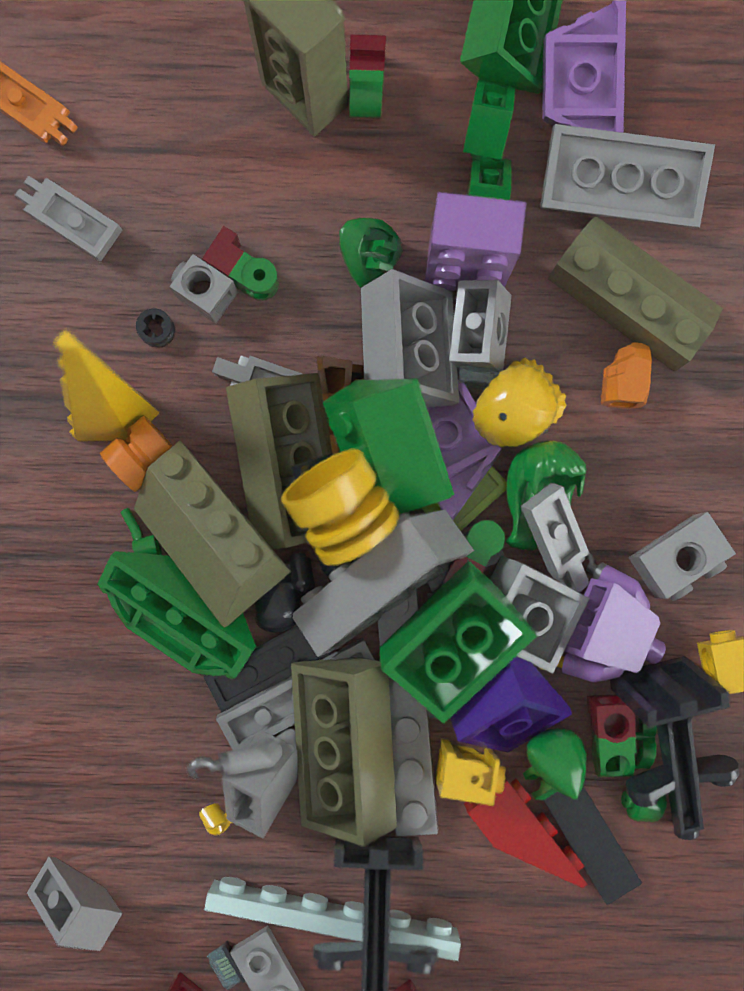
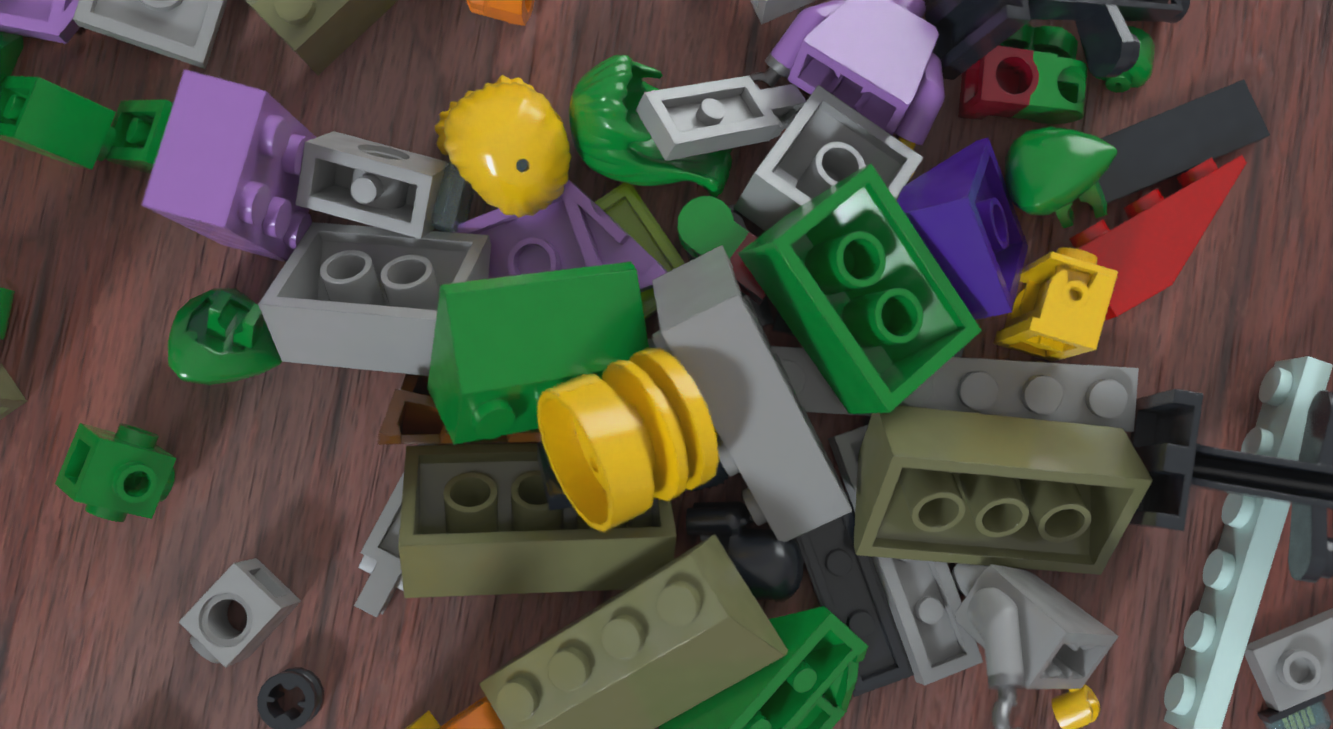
camera: 75 degrees left, 0 degrees up
(250, 275) = (231, 533): leg -> none
(278, 200) = (117, 471): none -> green brick

